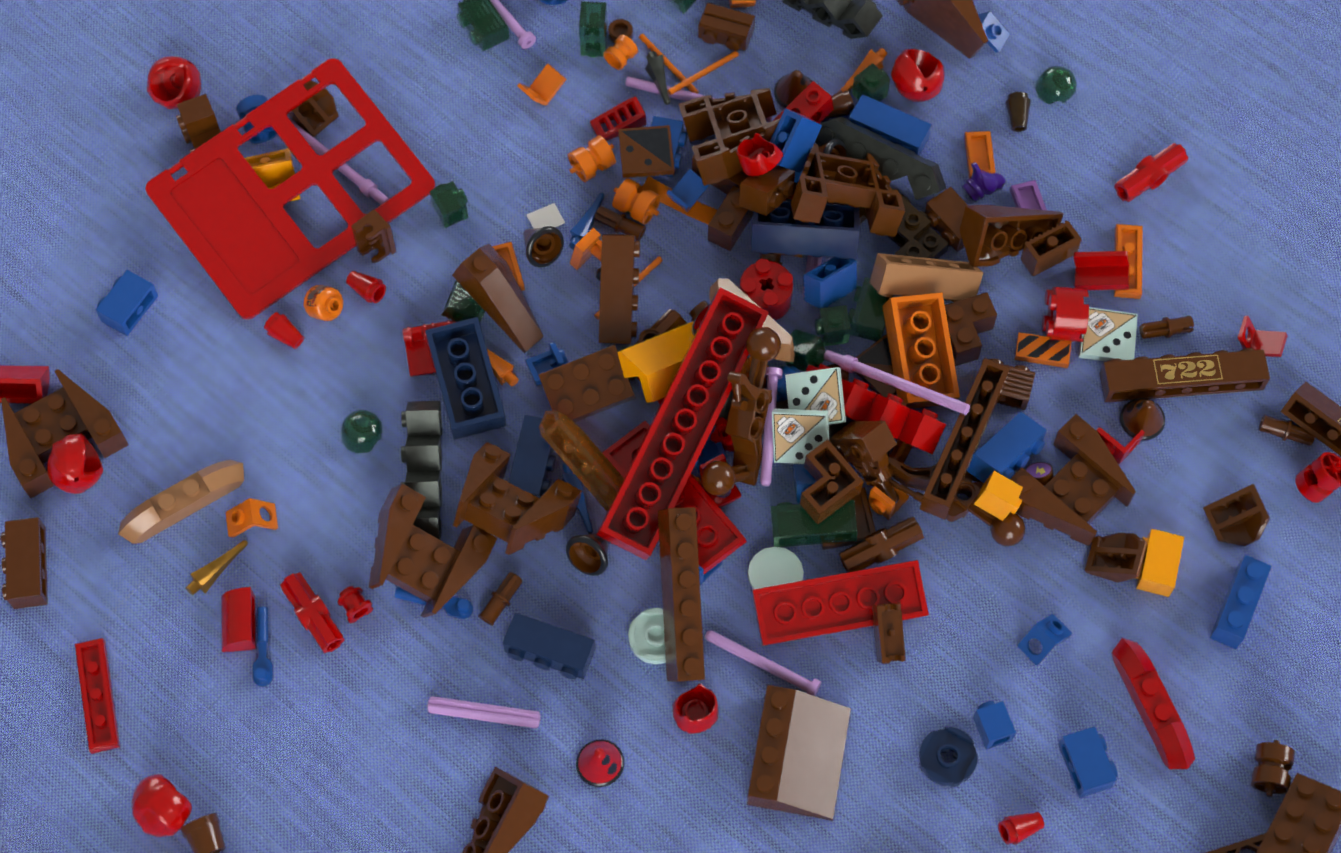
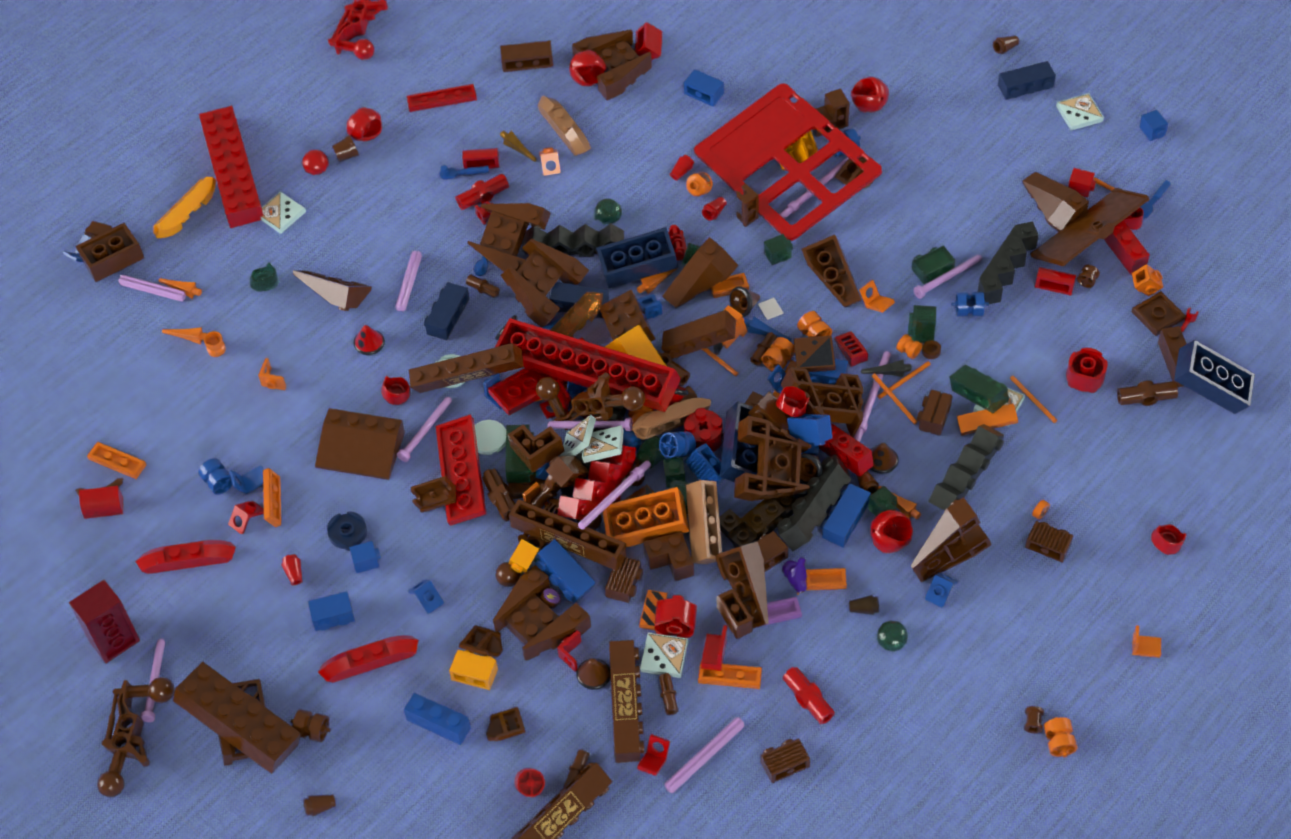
camera: 95 degrees right, 10 degrees down
(484, 137) = (831, 267): none -> reddish brown wedge
(802, 312) = (677, 444): none -> blue wheel
(1243, 197) = (785, 760): none -> reddish brown brick
(1244, 287) = (704, 755): none -> lavender axle

